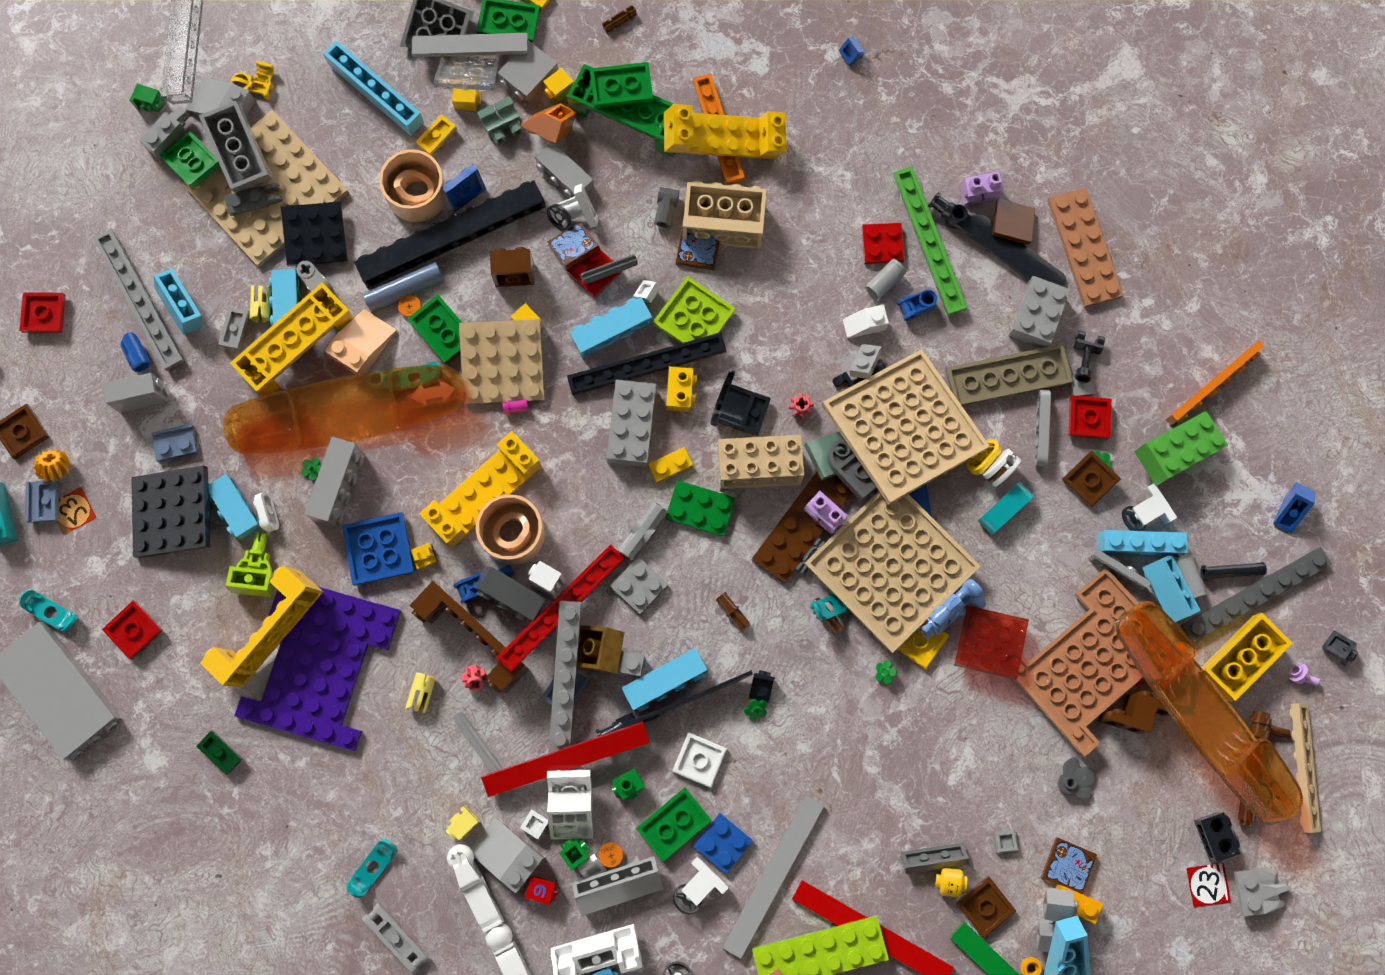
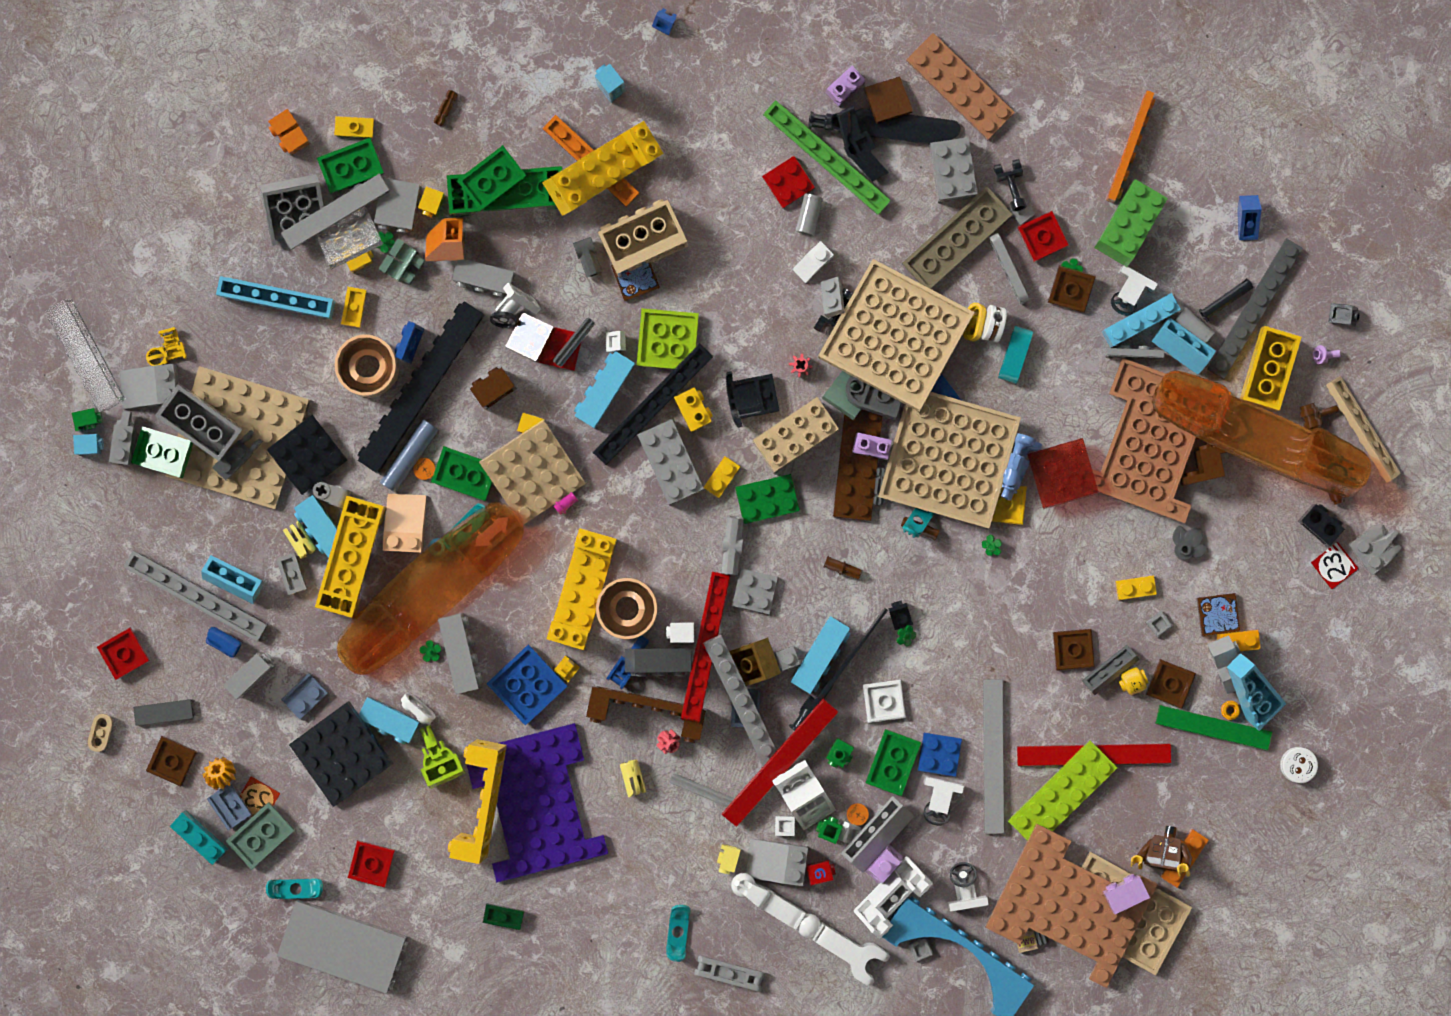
camera: 30 degrees left, 10 degrees up
(42, 384) = (163, 712): none -> dark grey tile
(51, 544) = (260, 835): none -> sand green plate
(133, 119) = (88, 444): none -> medium azure brick
(497, 96) = (386, 239): none -> green plant
(607, 919) = (884, 864): none -> lavender torso
(774, 67) = (609, 82): none -> medium azure brick
(909, 817) = (1073, 649): none -> reddish brown tile
(914, 306) = (847, 222): blue piece -> none
(966, 244) = (859, 145): none -> black plate
(1002, 792) = (1135, 587): none -> yellow plate

